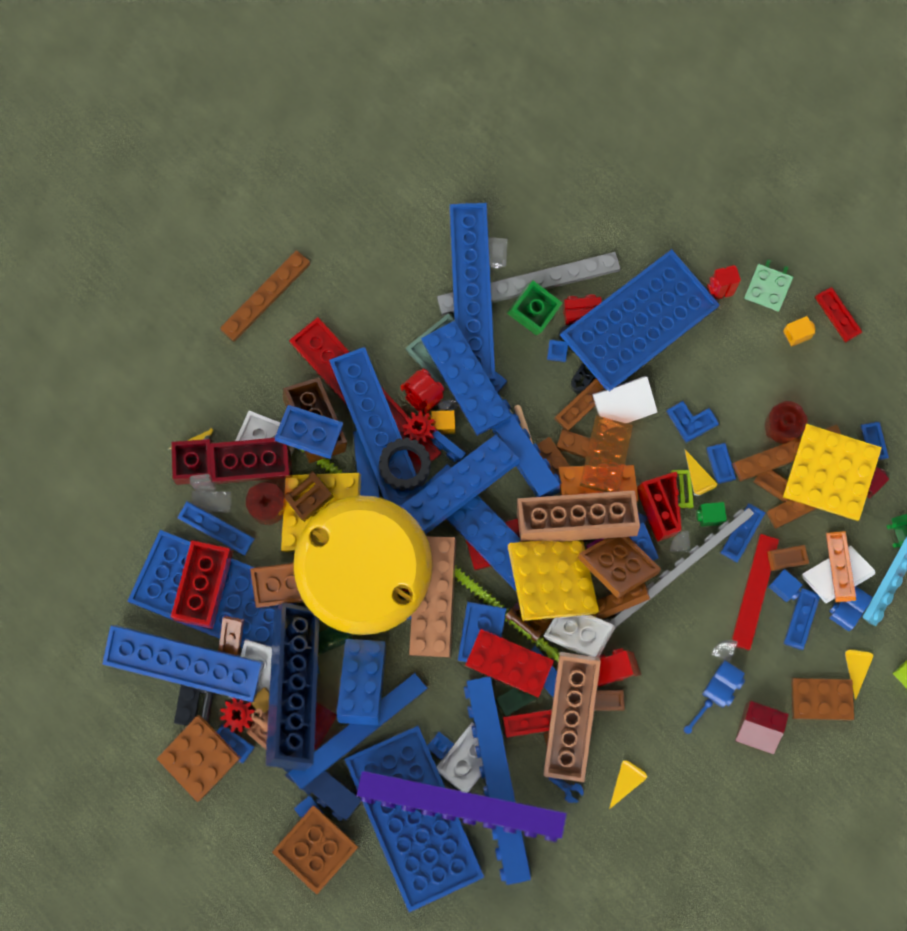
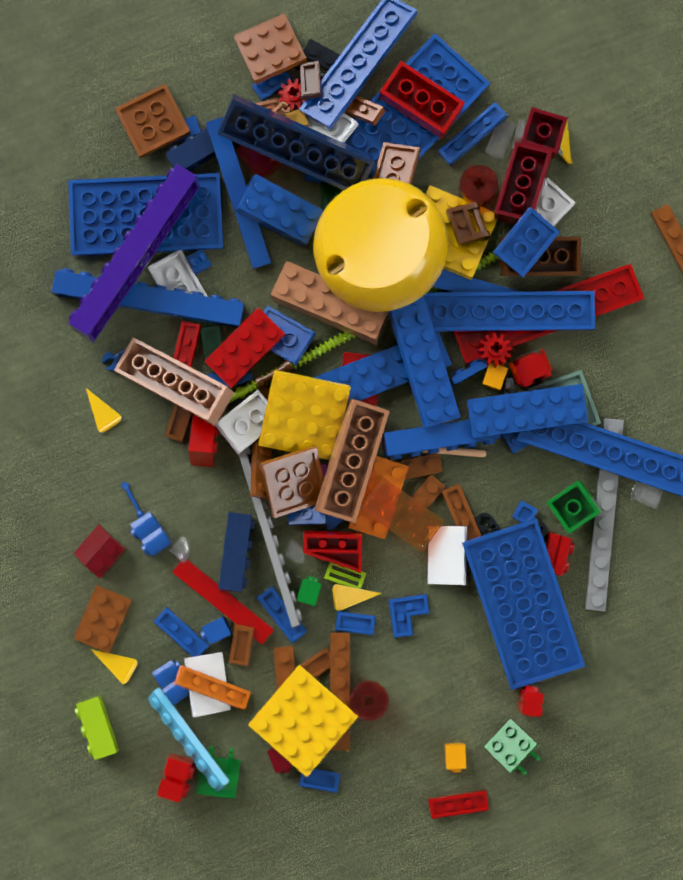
camera: 115 degrees right, 10 degrees up
(218, 702) = (310, 80): none -> tile
(404, 444) = (482, 313): black tyre -> none
(706, 595) = (235, 552): none -> dark blue brick

